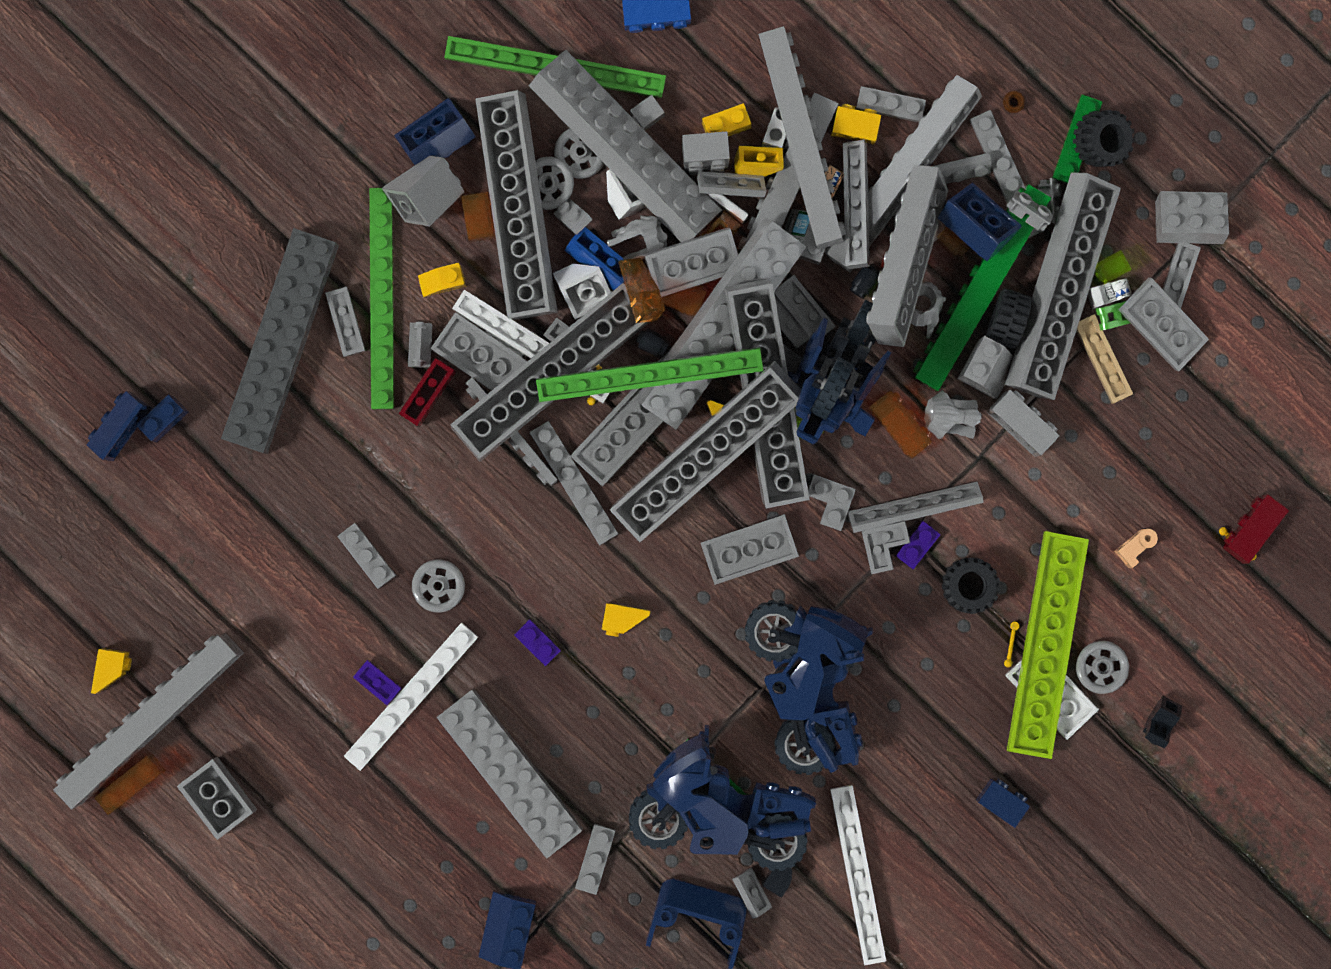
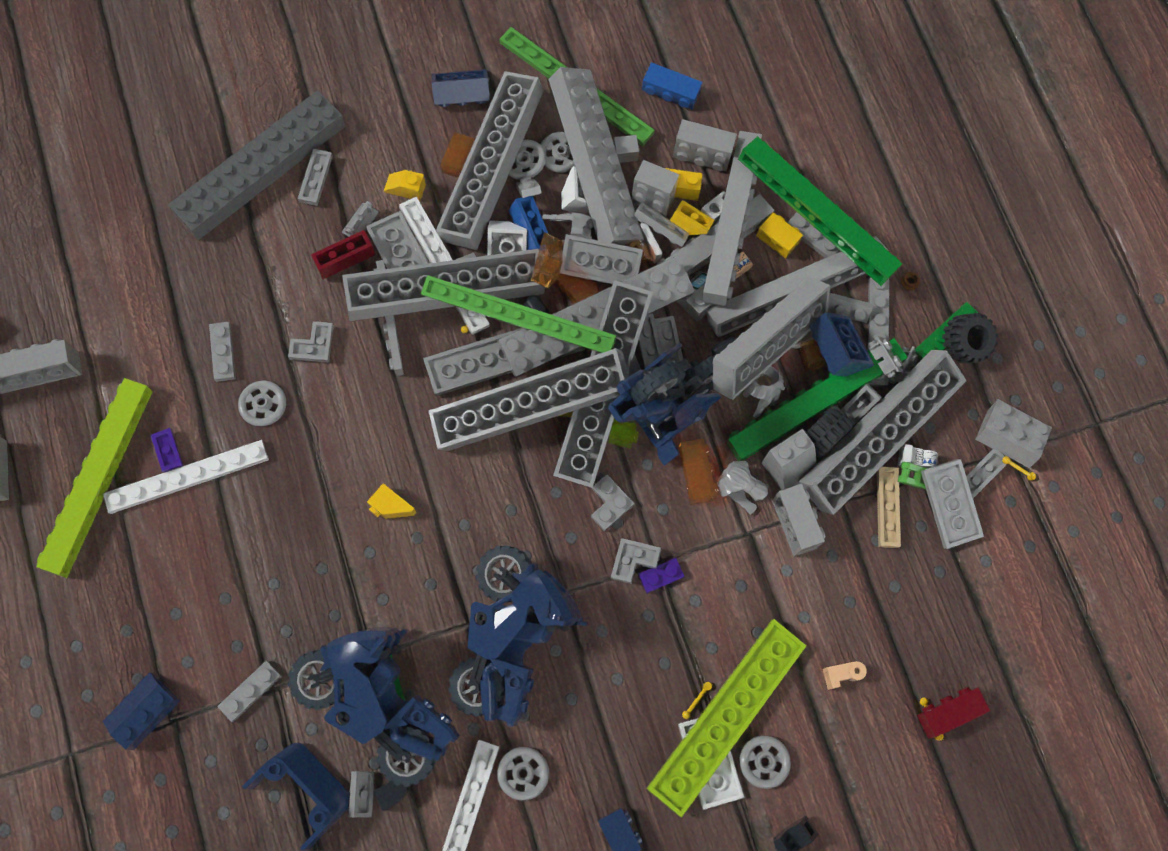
camera: 20 degrees right, 15 degrees down
(117, 426) = (101, 162): dark blue slope -> none
(162, 418) = (136, 172): dark blue brick -> none
(326, 744) = (94, 479): none -> lime brick
(381, 300) = (351, 177): bright green plate -> none
(424, 191) = (429, 114): light grey slope -> none
(458, 502) = (316, 348): none -> light grey plate
(510, 773) = (224, 580): light grey brick -> none
(537, 642) = (311, 488): dark purple plate -> none
(574, 483) = (414, 382): light grey plate -> none
(729, 68) = (704, 145): none -> light grey brick
(749, 549) = (522, 505): light grey plate -> none
(856, 204) = (749, 286): light grey plate -> none
(887, 86) = (819, 211): none -> green brick
(902, 785) = (541, 771): none -> light grey plate
(915, 507) = (677, 543): light grey plate -> none
(989, 591) = (703, 620): black tyre -> none
(1026, 267) = (861, 403): none -> light grey slope
(1112, 267) = (930, 439): clear neon green brick -> none
(1227, 249) = (1031, 476): none -> yellow hinge

